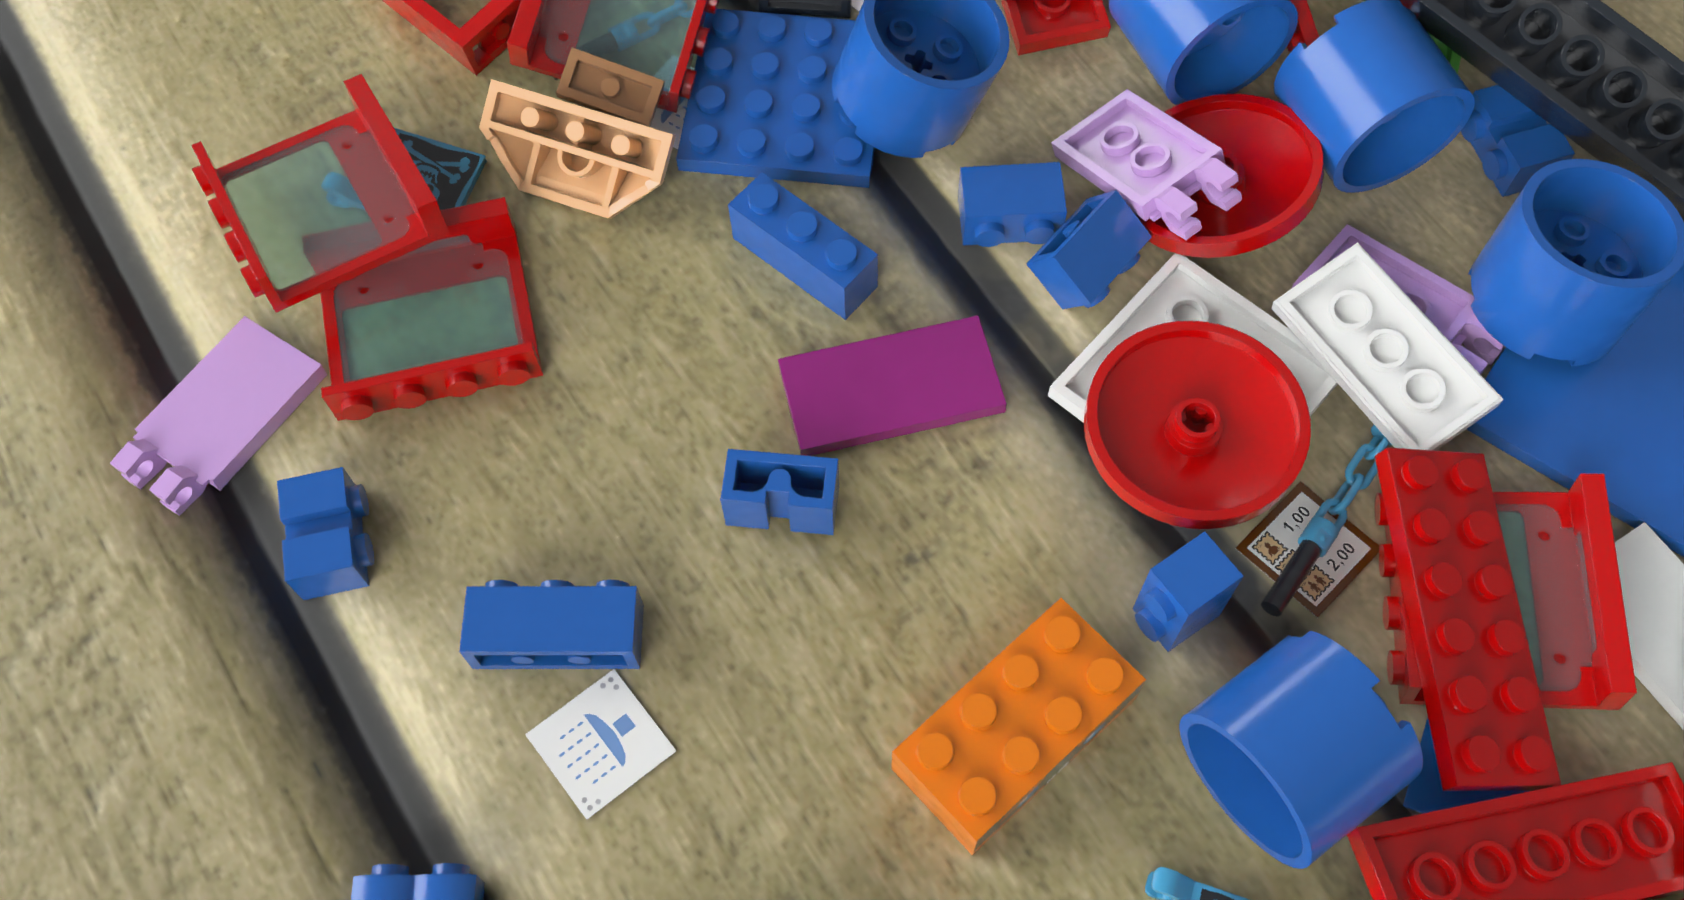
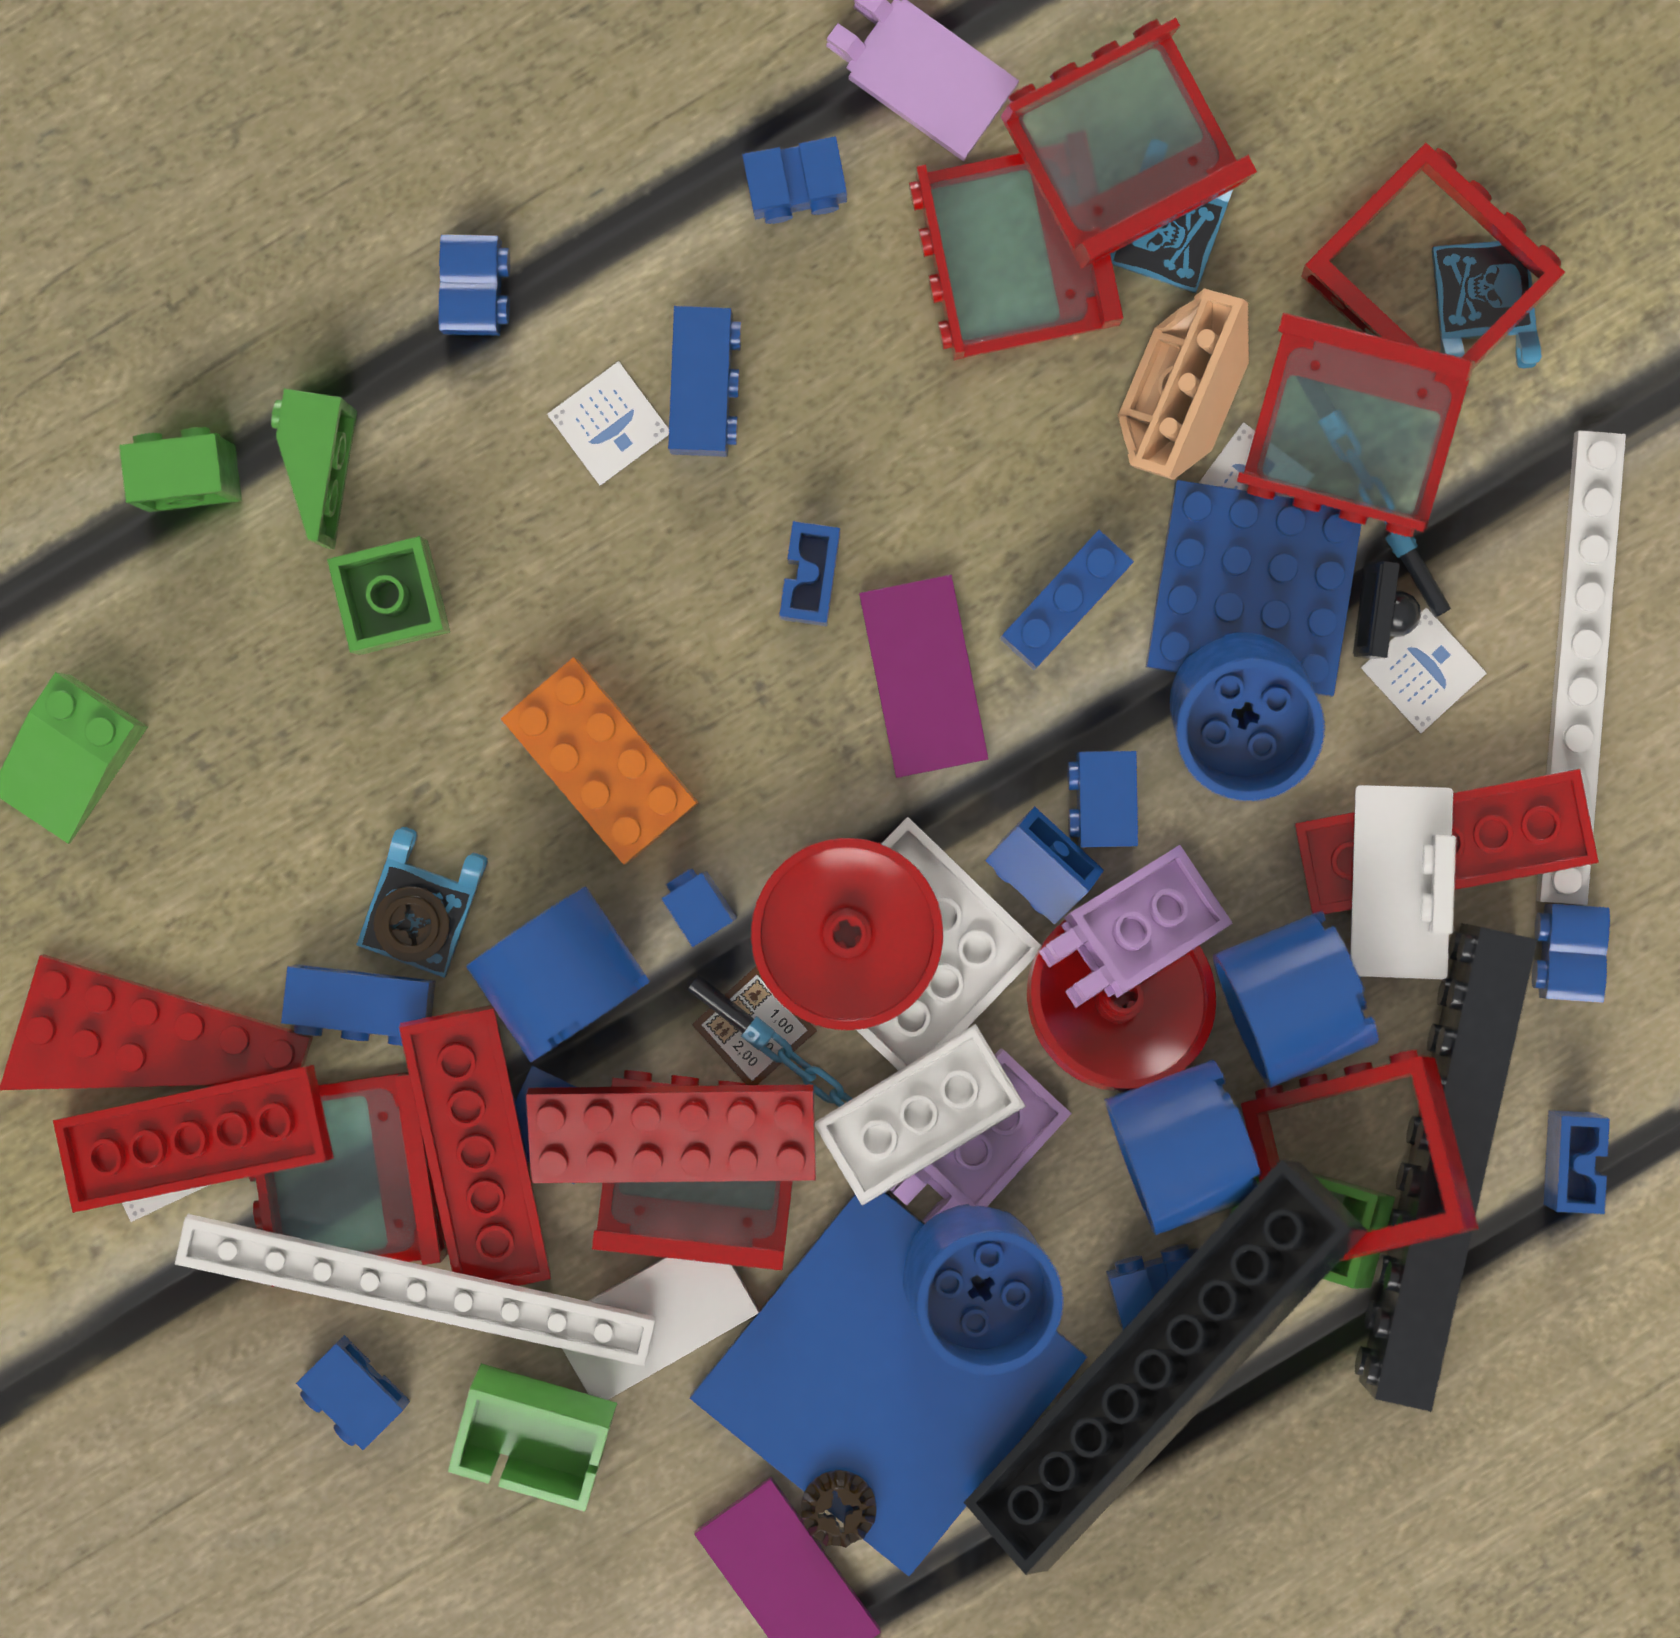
camera: 90 degrees right, 25 degrees up
(610, 87) = (1250, 414): medium nougat plate -> none

